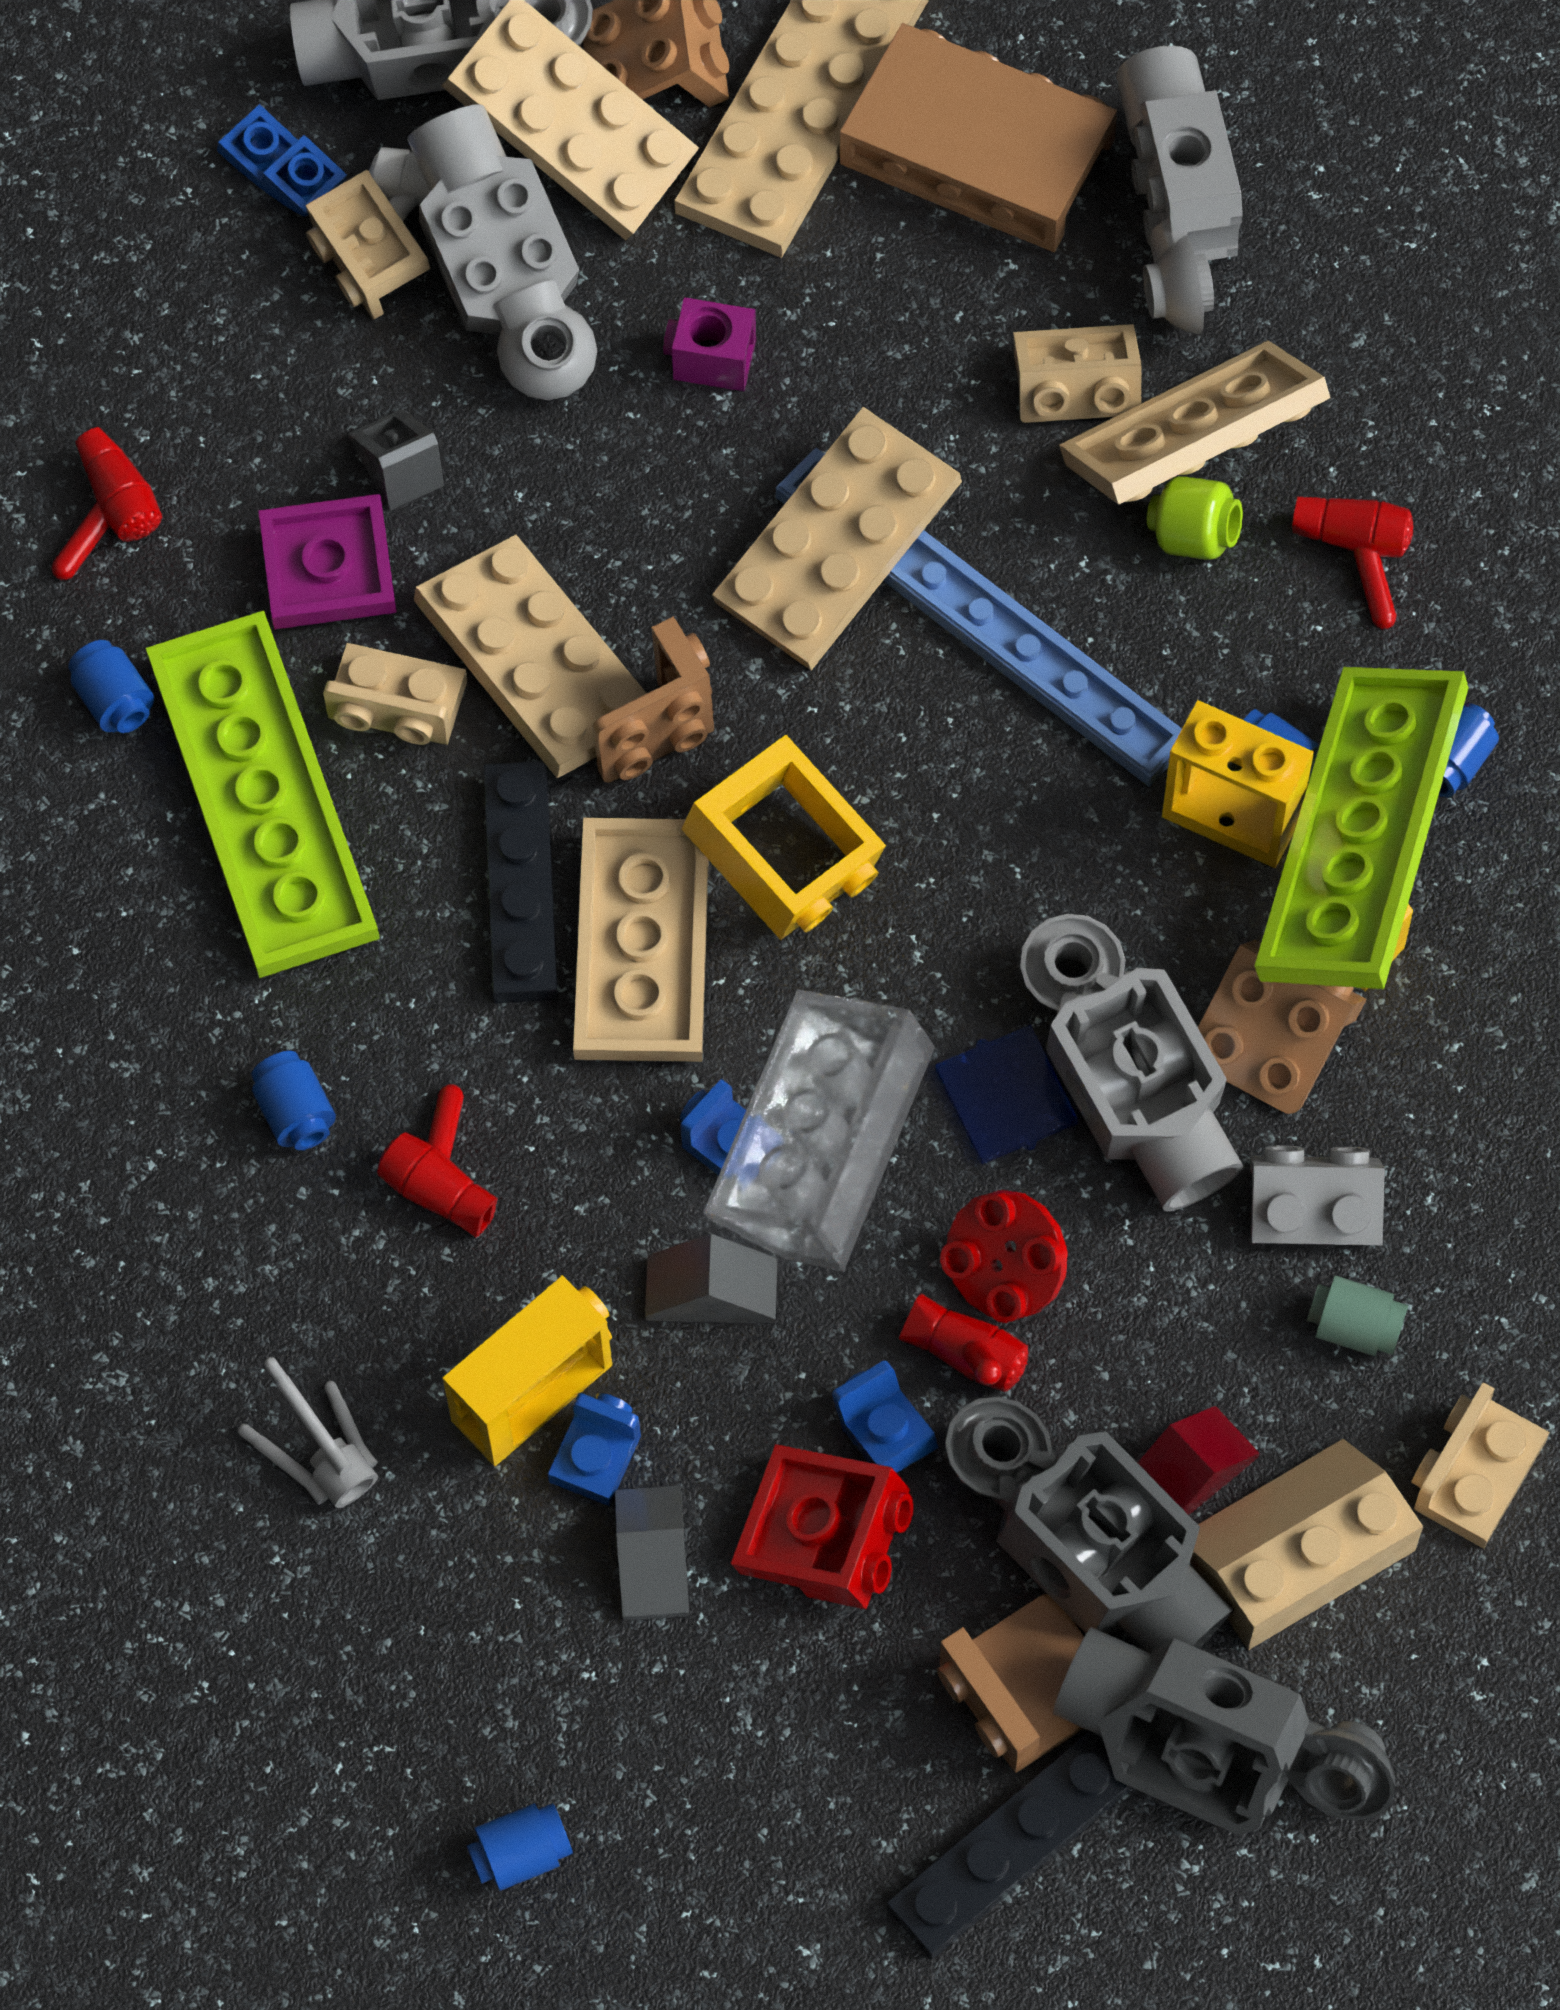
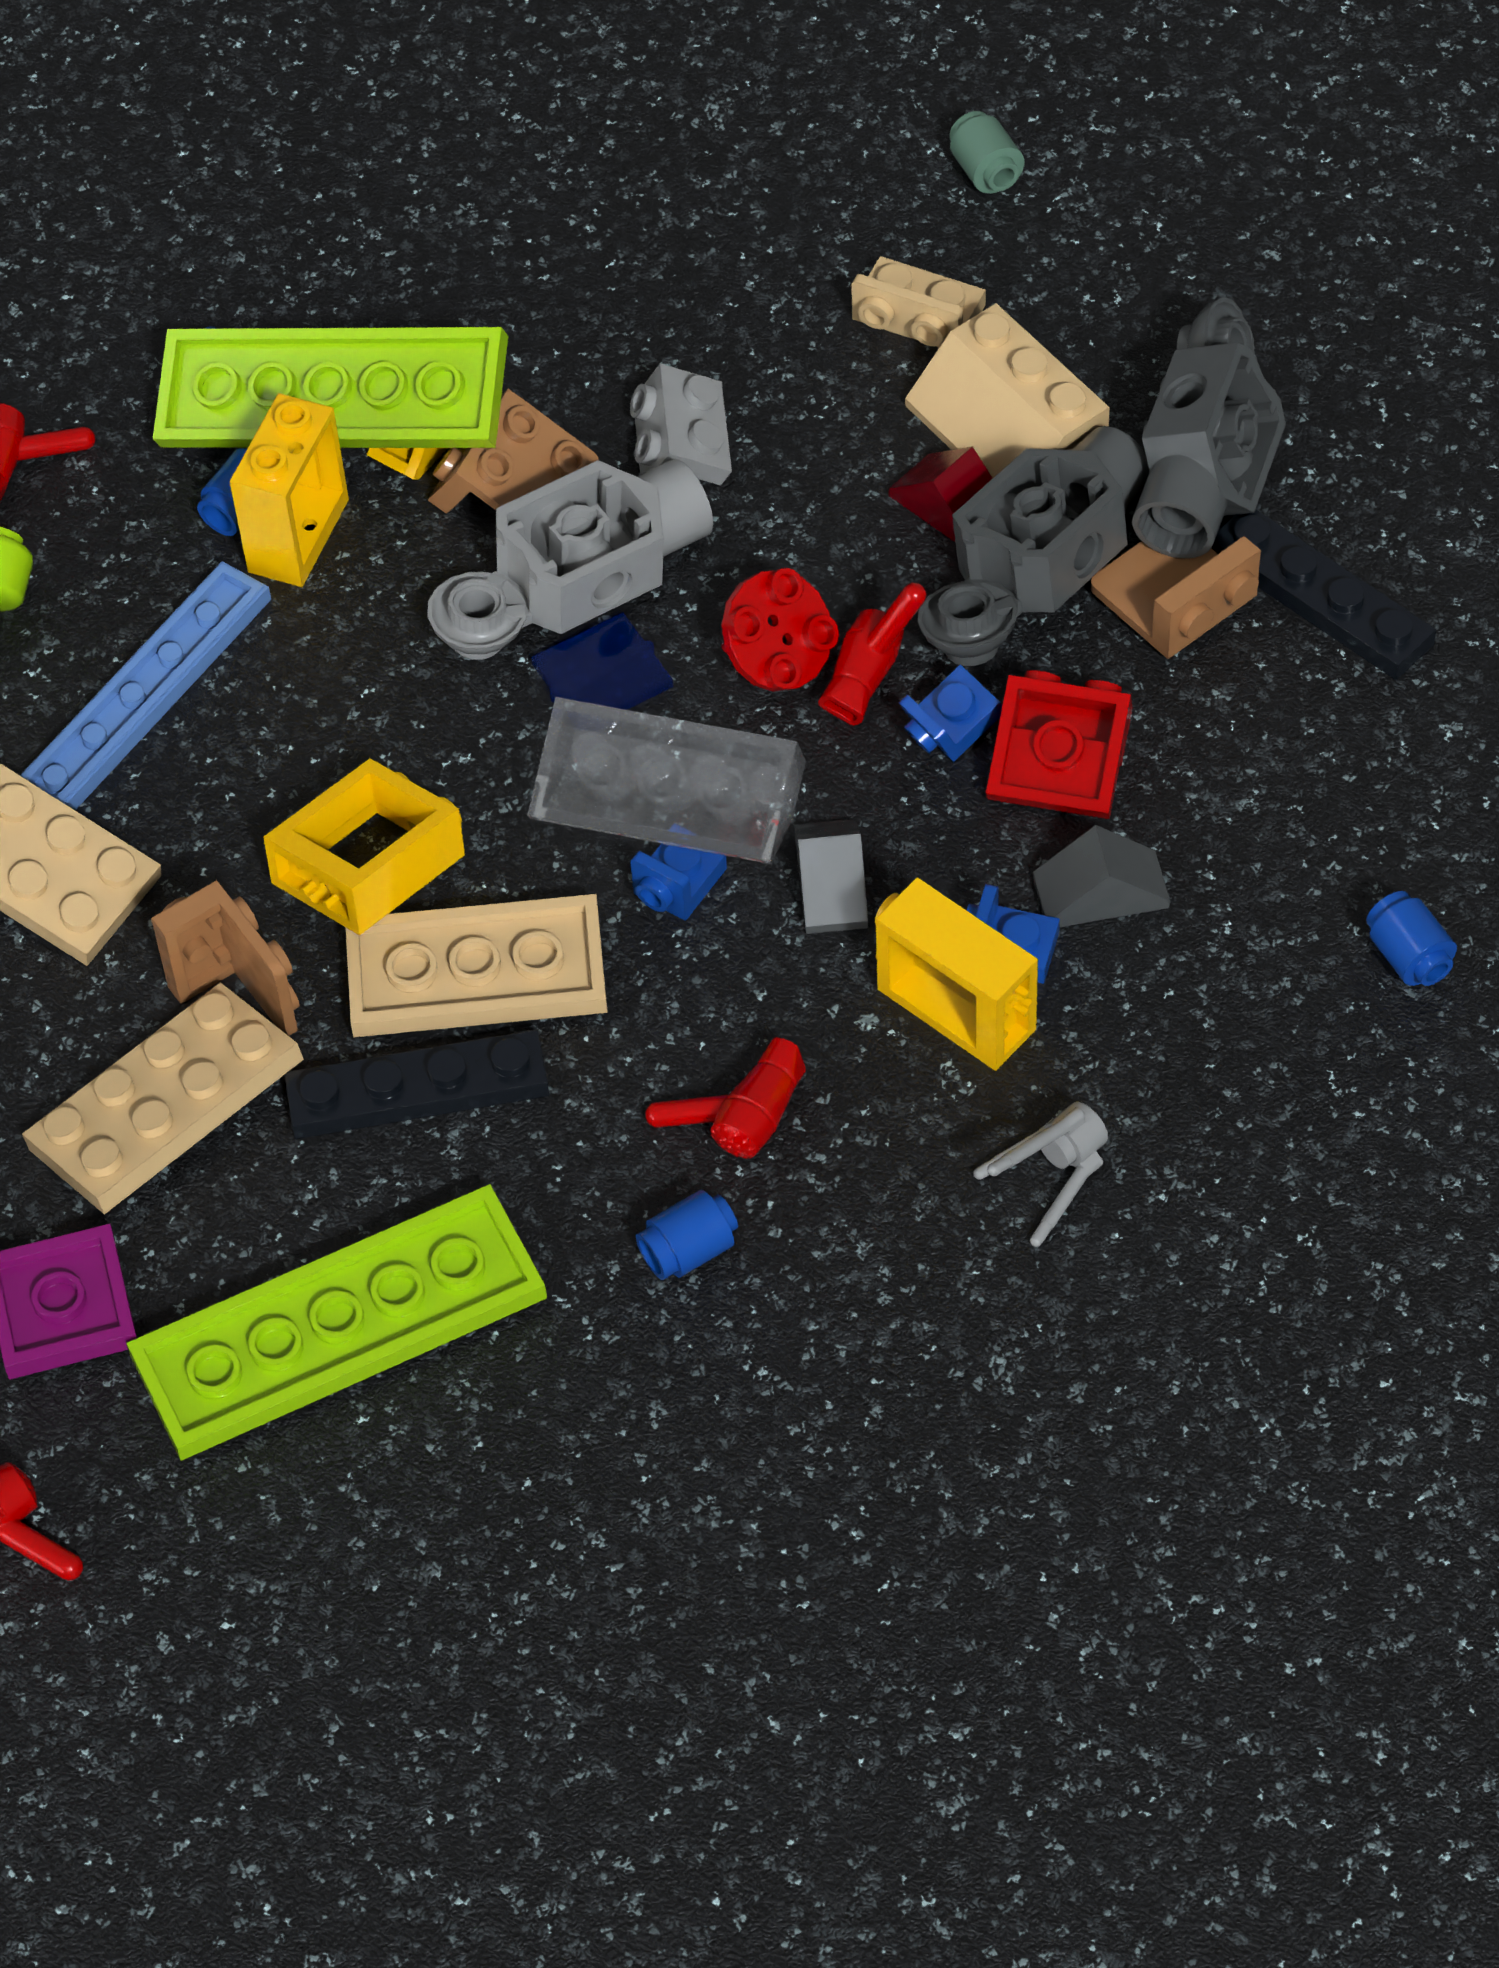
camera: 95 degrees left, 10 degrees down
(110, 687) = (223, 1479): blue brick -> none
(395, 695) = (212, 1221): tan bracket -> none
(1357, 1316) = (794, 387): sand green brick -> none

